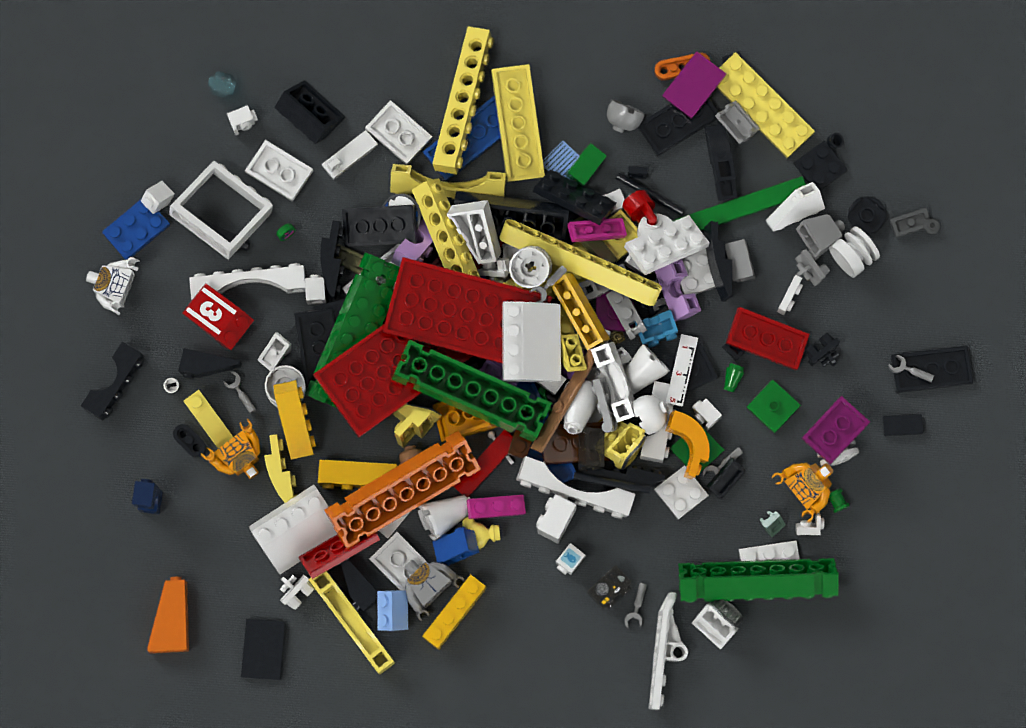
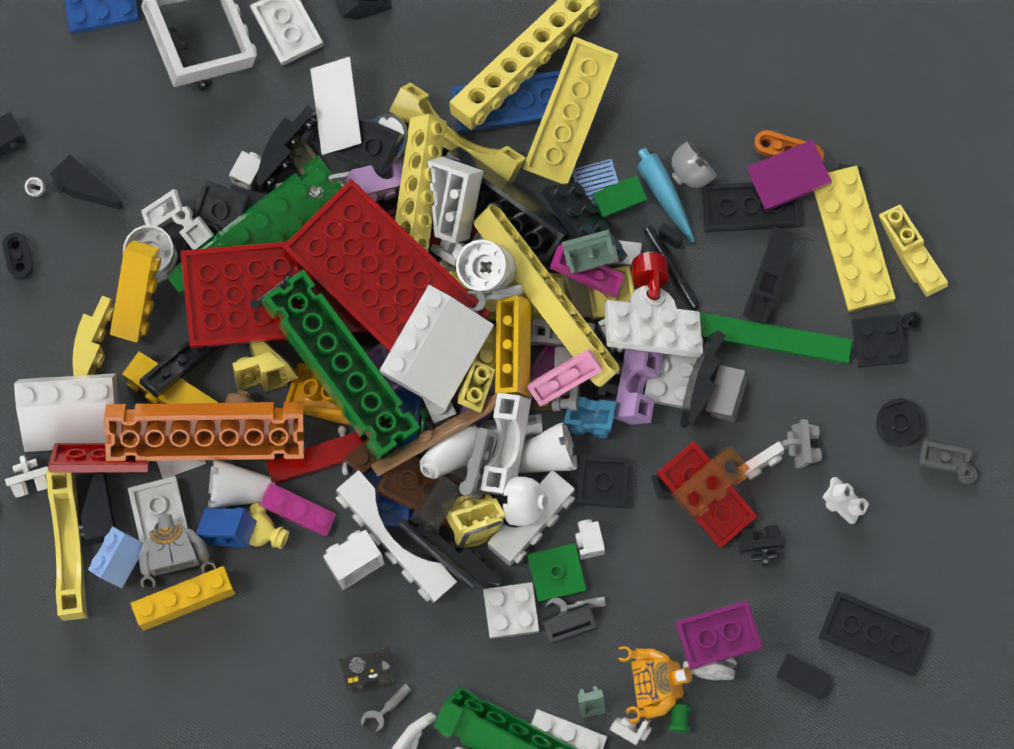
camera: 30 degrees right, 5 degrees down
(113, 283) = (41, 47): white torso -> none
(208, 418) = (51, 244): light yellow slope -> none
(218, 317) = (125, 140): red slope -> none
(237, 454) = (58, 297): light orange torso -> none
(242, 395) = (103, 240): light grey piece -> none
(285, 232) = (254, 93): green tile -> none
(289, 279) = (138, 107): white arch -> none
(308, 354) = (194, 230): none -> white plate
(349, 155) = (373, 49): white hinge -> none
(351, 458) = (174, 368): none -> black tile
(352, 209) = (335, 105): none -> white sticker
(398, 132) = (437, 54): white plate -> none
(398, 352) = (255, 303): none -> black hinge
(570, 559) = (343, 614): brick -> none
(595, 216) = (590, 251): none -> sand green hinge
(609, 140) = (664, 190): none -> medium azure piece
(628, 312) = (564, 377): none -> bright pink plate
(681, 370) = (589, 475): white sticker -> none
(695, 437) = (559, 551): light orange arch -> none
(733, 376) = (643, 516): green cone -> none
(737, 122) = (814, 241): light grey hinge -> none
(759, 334) = (697, 482): none -> clear orange brick
(773, 406) = (670, 574): green plate -> none
(800, 204) = (828, 368): white slope -> none
(807, 92) = (911, 251): none -> light yellow slope
(820, 233) = (834, 412): light grey torso -> none
(854, 252) = (865, 452): white wheel -> none
(860, 290) = (842, 499): none -> white hips
(914, 371) = (850, 622): light grey piece -> none

